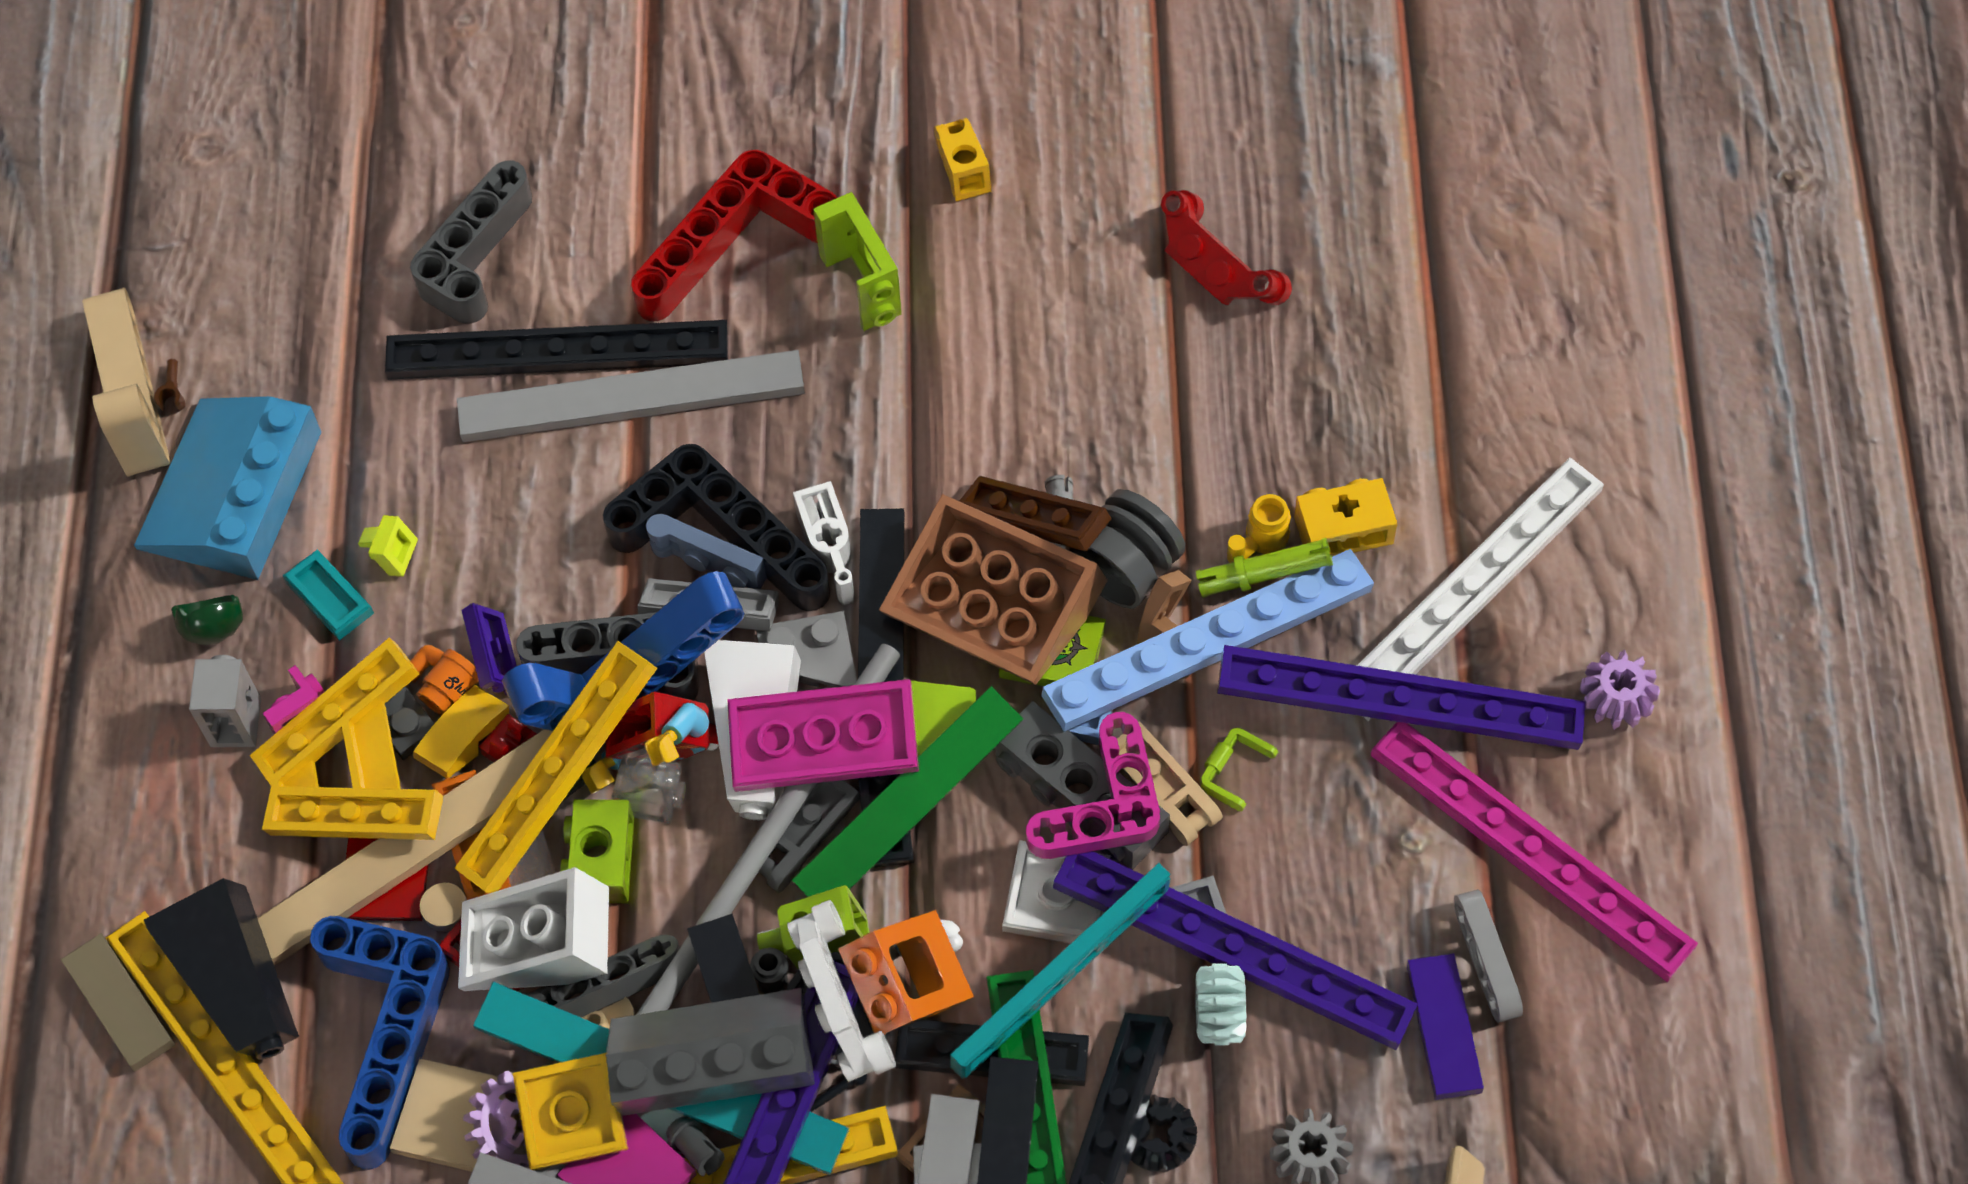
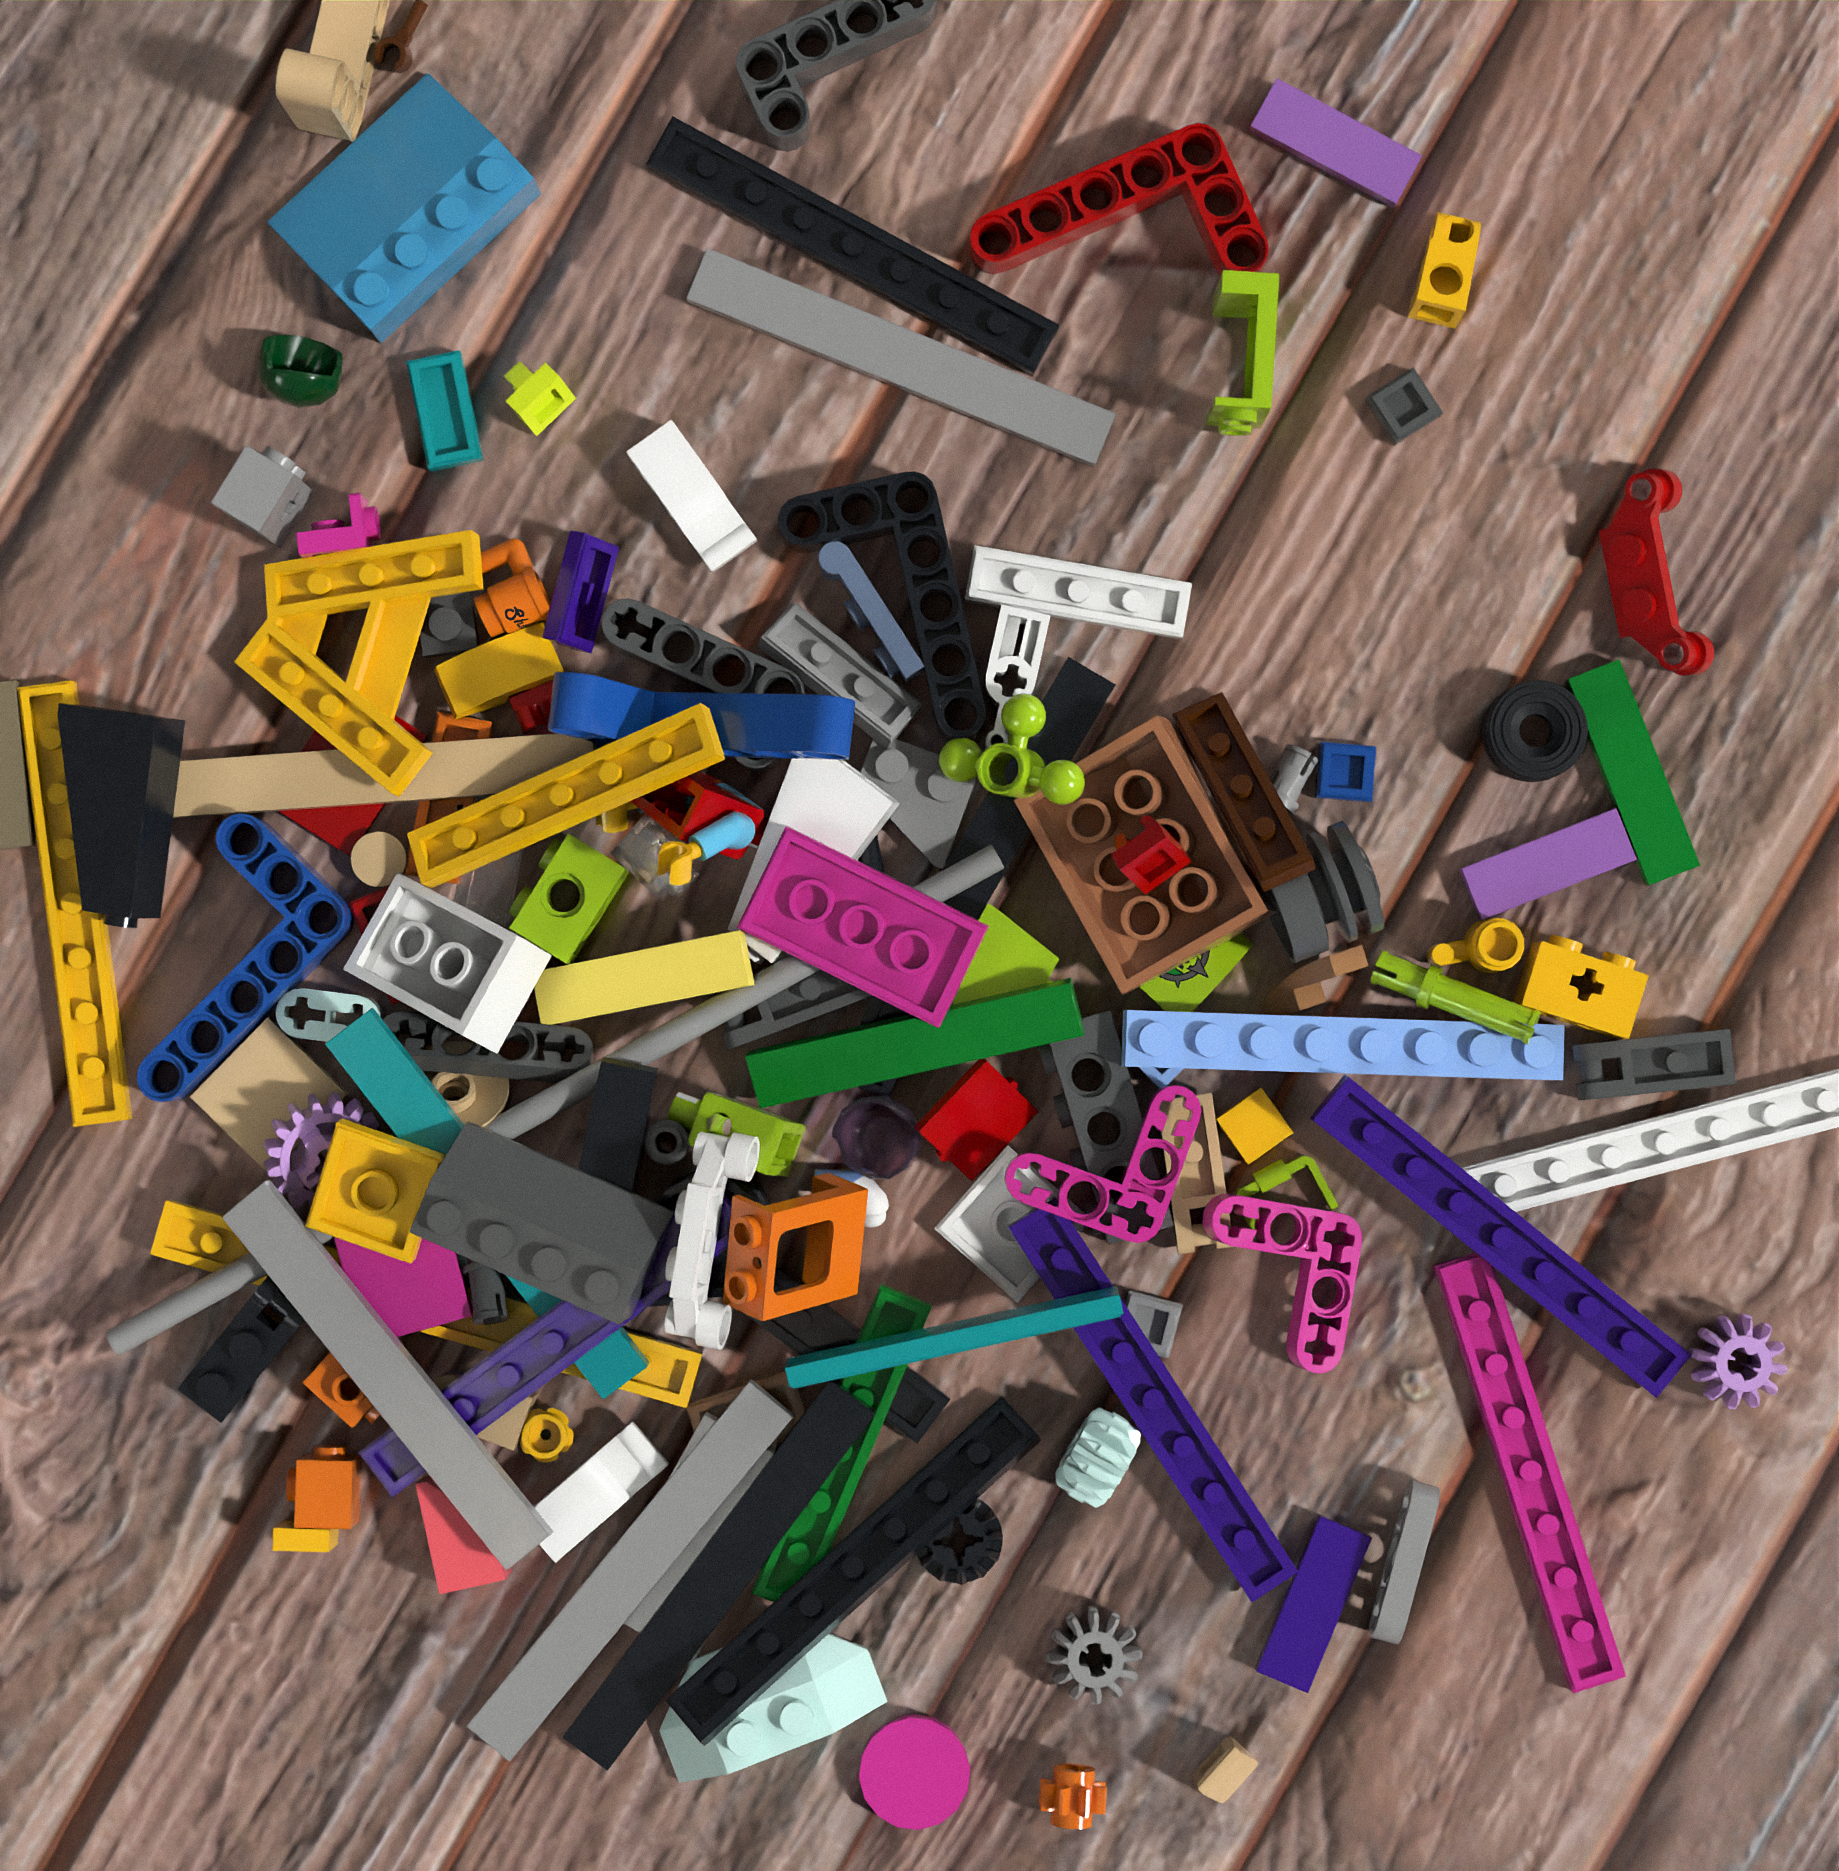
camera: 30 degrees right, 25 degrees up
(460, 1026) = (320, 1000): none -> light aqua beam
(532, 549) = (691, 496): none -> white piece
(685, 869) = (644, 978): none -> light yellow tile
(842, 128) = (1335, 143): none -> medium lavender tile
(846, 468) = (1079, 592): none -> white tile
(851, 546) = (1022, 718): none -> lime piece
(920, 880) = (877, 1136): none -> clear purple hair
(985, 831) = (976, 1119): none -> red piece
(987, 250) = (1403, 406): none -> dark grey tile
(994, 573) = (1149, 856): none -> red tile
(1095, 479) = (1345, 772): none -> blue tile
(1184, 731) = (1254, 1125): none -> yellow tile
(1204, 362) = (1565, 722): none -> black tyre
(1270, 459) = (1547, 864): none -> medium lavender tile
(1276, 784) = (1310, 1246): none -> dark pink beam
(1287, 378) = (1633, 773): none -> green tile
(1428, 539) = (1656, 1064): none -> dark grey plate

